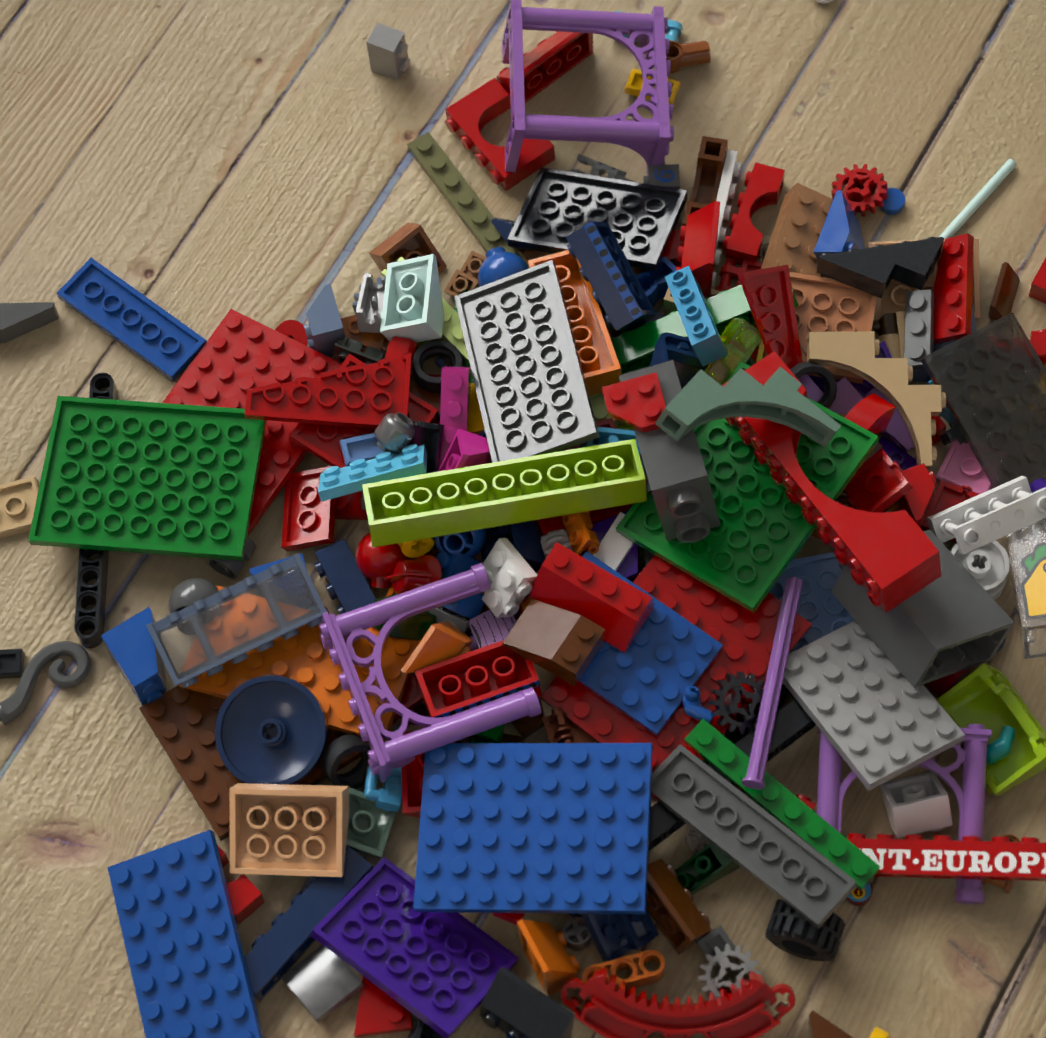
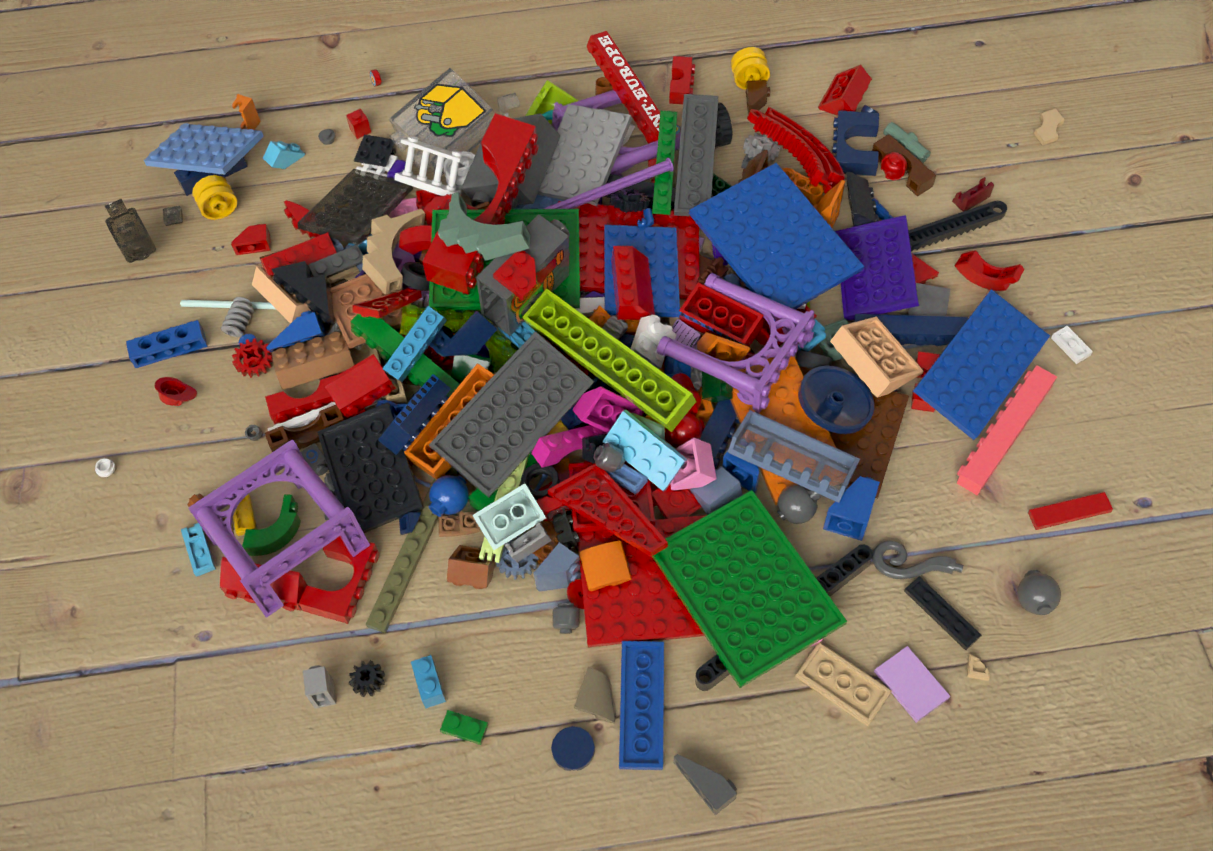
camera: 130 degrees left, 5 degrees down
(89, 916) = (1006, 430): none -> coral brick
(146, 236) = (573, 748): none -> dark blue tile
(175, 285) = (596, 696): none -> dark tan slope
(249, 159) = (464, 727): none -> green plate
(275, 306) = (565, 617): none -> dark grey head
(281, 534) = (718, 492): none -> sand blue slope
(287, 360) = (605, 565): none -> orange slope
(316, 149) = (428, 681): none -> dark azure brick
(320, 522) = (698, 468): none -> bright pink slope
(367, 101) = (359, 682): none -> black gear
(556, 640) = (671, 284): reddish brown slope -> none
(602, 88) = (273, 538): none -> green arch
(752, 144) = (249, 435): none -> dark grey hinge
(868, 90) = (174, 391): none -> red piece
(931, 203) = (237, 317): none -> light grey piece
(946, 151) = (166, 344): none -> blue brick
(958, 986) = (681, 79): none -> red arch

